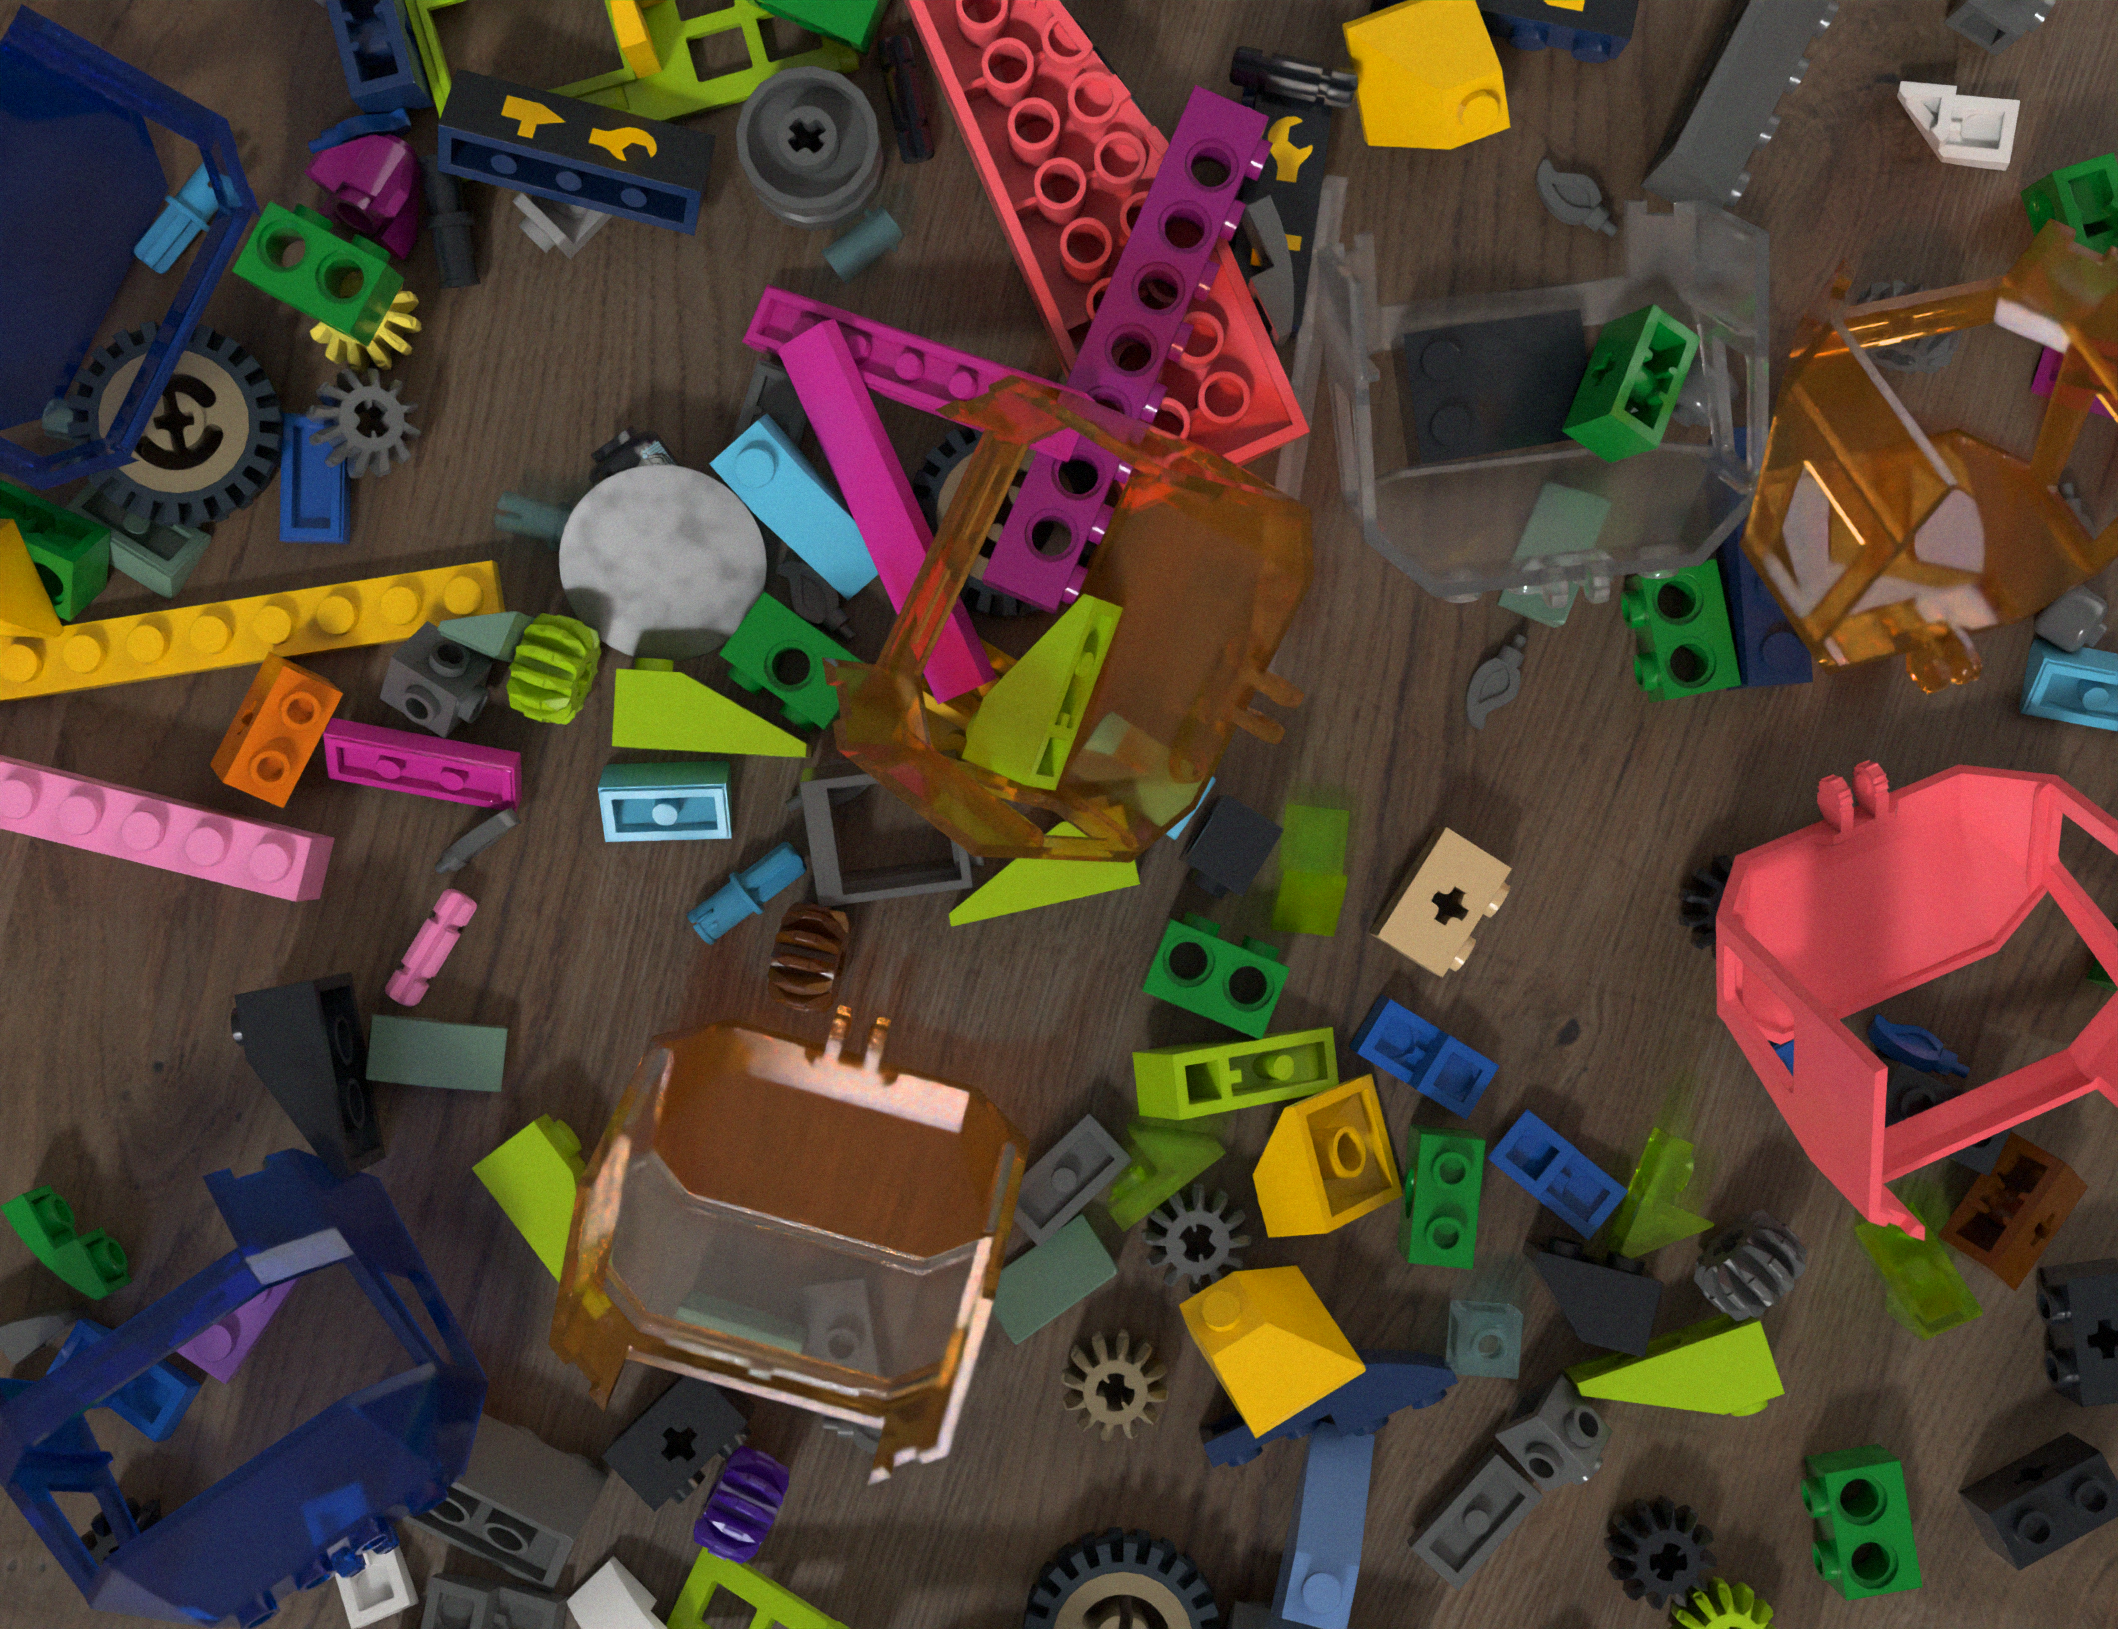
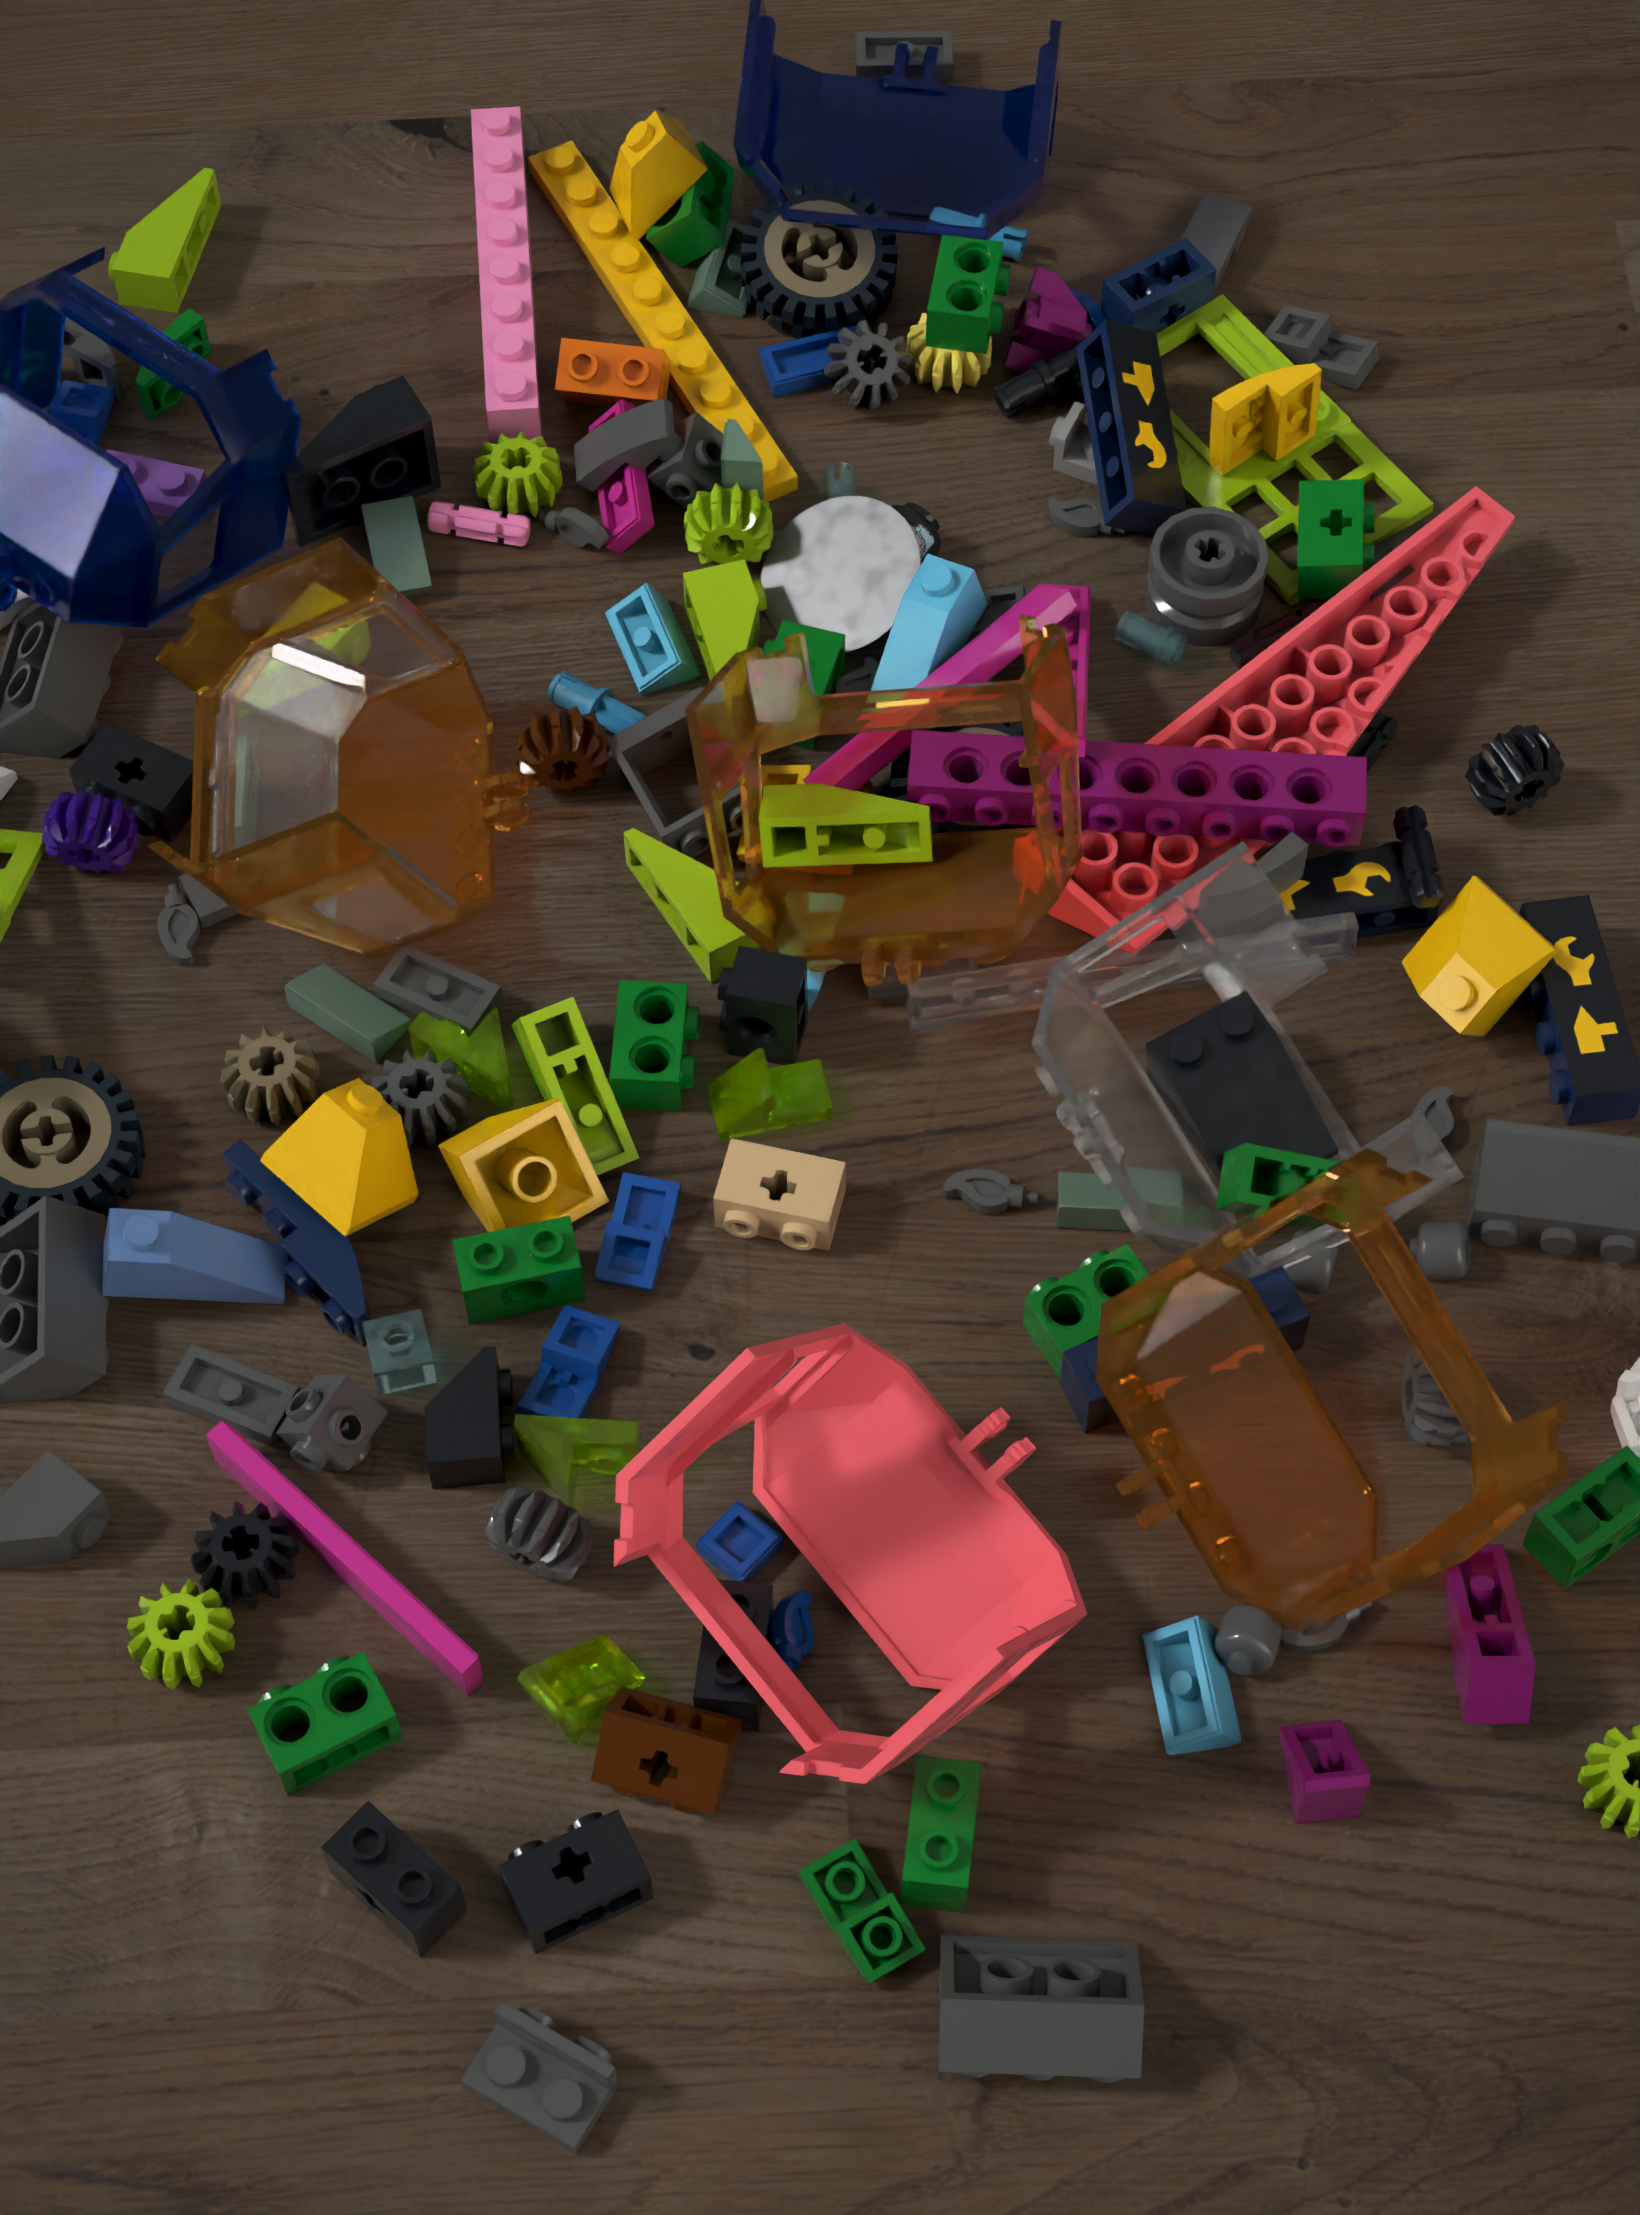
camera: 75 degrees right, 30 degrees down
(360, 878) = (518, 474): none -> lime gear
(394, 751) = (629, 437): none -> dark grey slope
(655, 257) = (1079, 516): none -> dark grey piece
(1693, 1458) = (347, 1558): none -> dark pink tile
(1700, 1368) = (433, 1541): lime slope -> none

